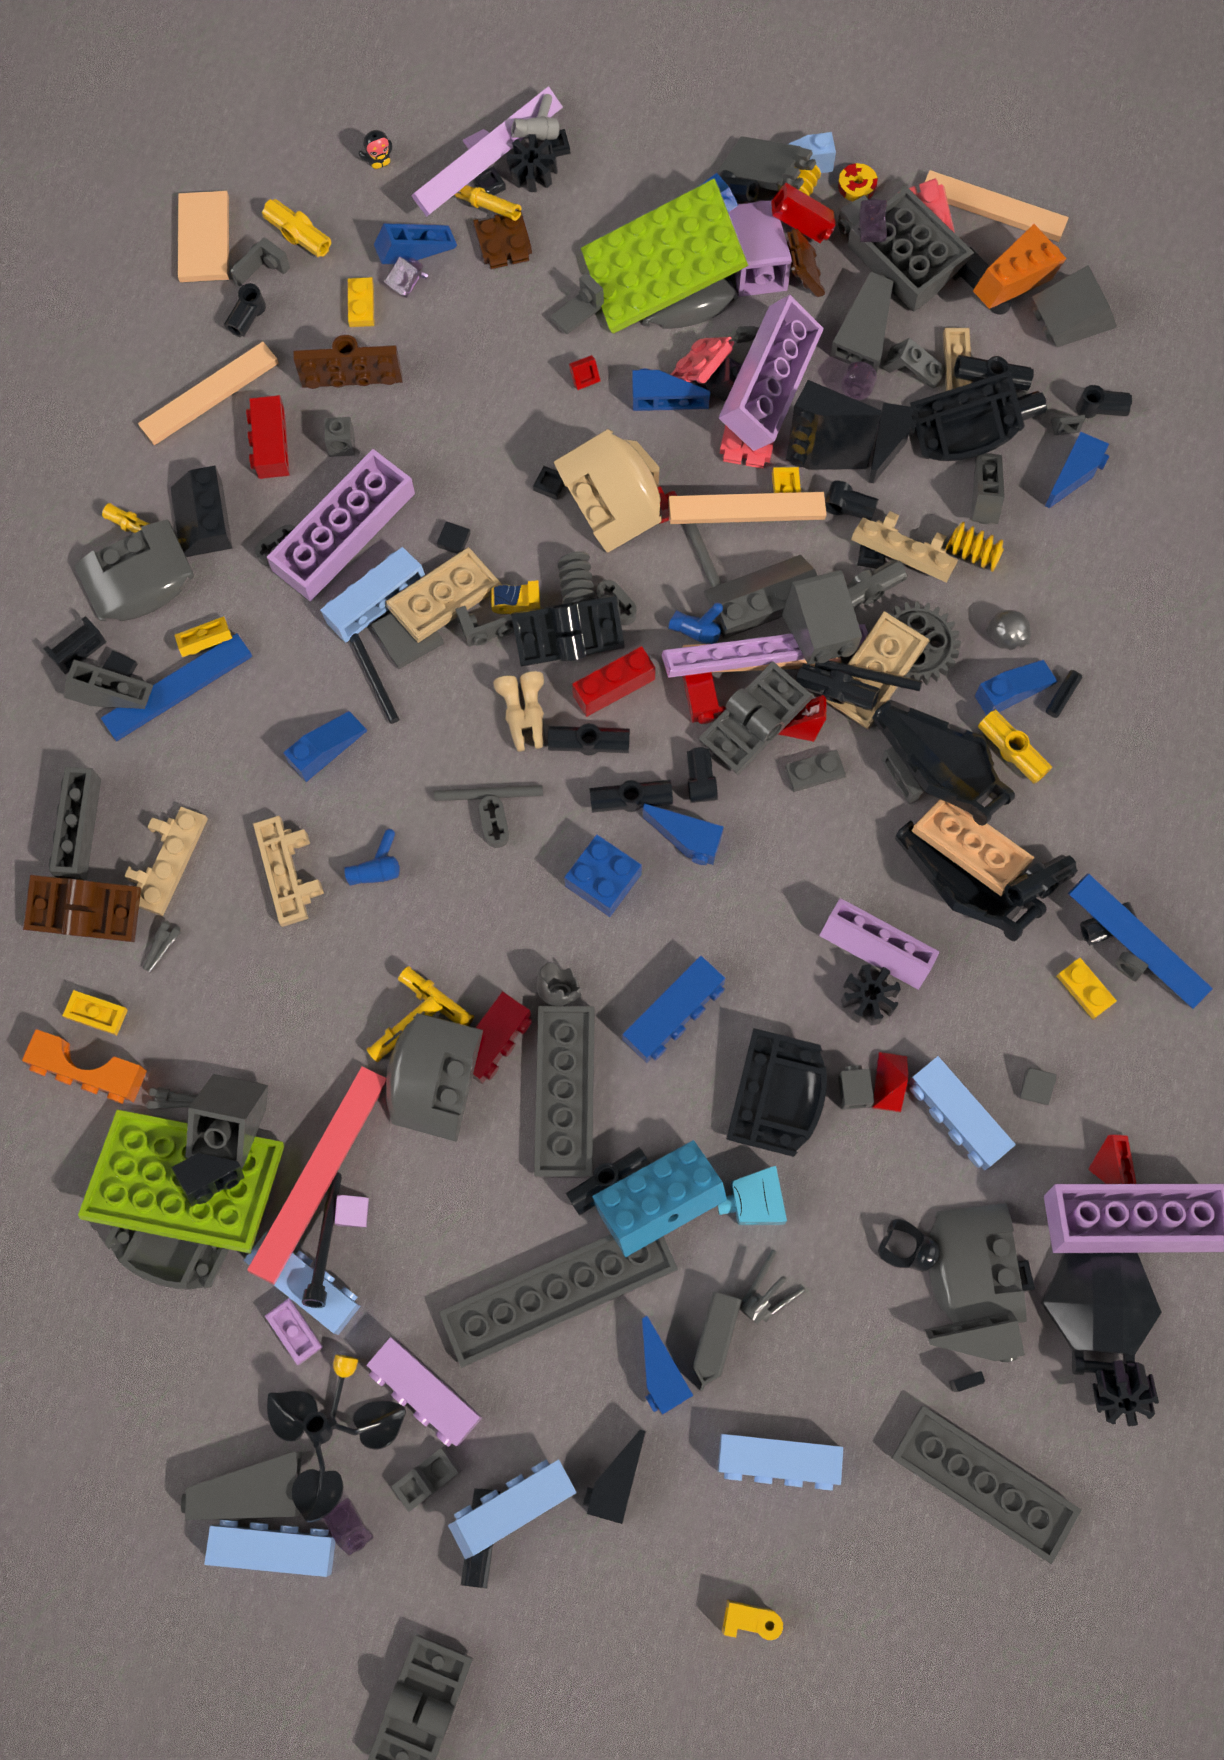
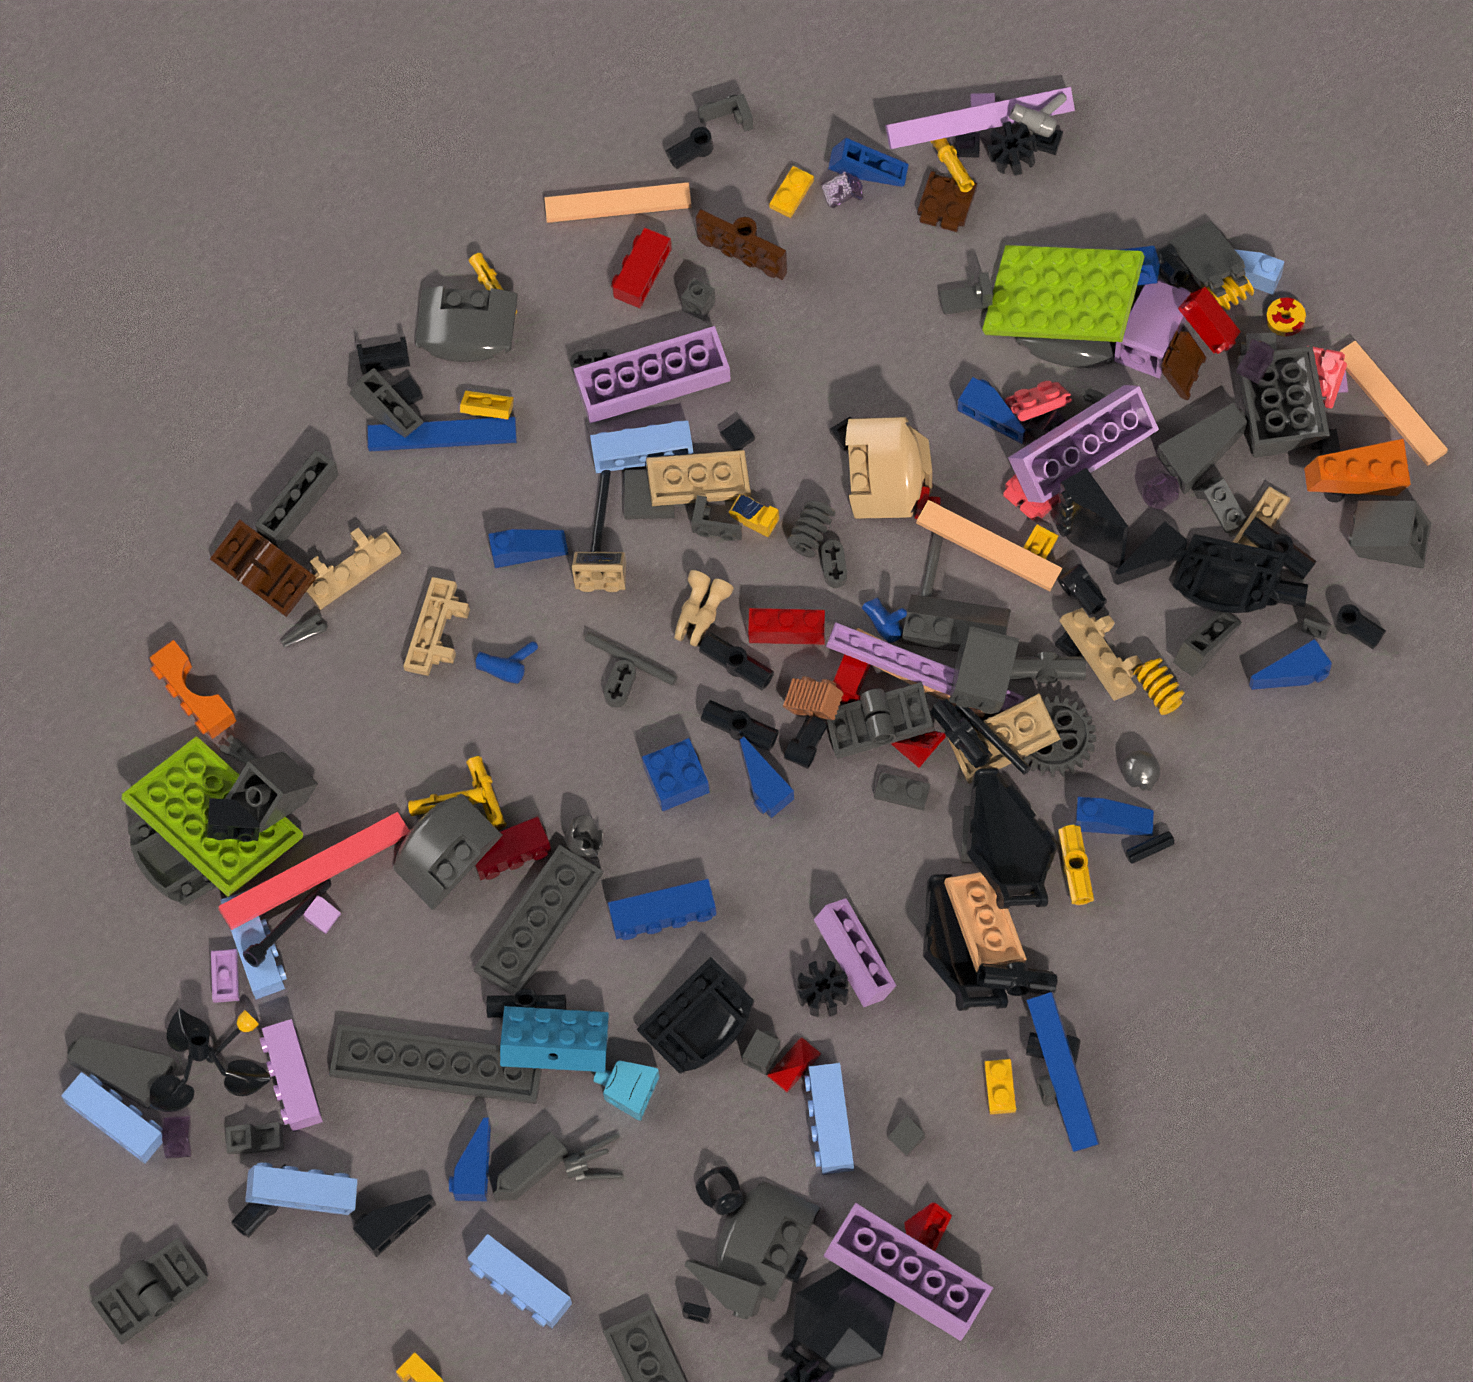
camera: 35 degrees right, 5 degrees down
(95, 1012) = (224, 654): yellow plate -> none
(201, 512) = (549, 301): black slope -> none
(203, 236) = (698, 62): light nougat tile -> none
(296, 228) = (778, 98): yellow piece -> none
(377, 149) = (889, 65): animal -> none
(409, 728) = (599, 571): none -> tan slope
(568, 630) = (776, 564): black plate -> none
(584, 372) = (935, 356): red tile -> none
(684, 732) = (813, 698): none -> nougat brick

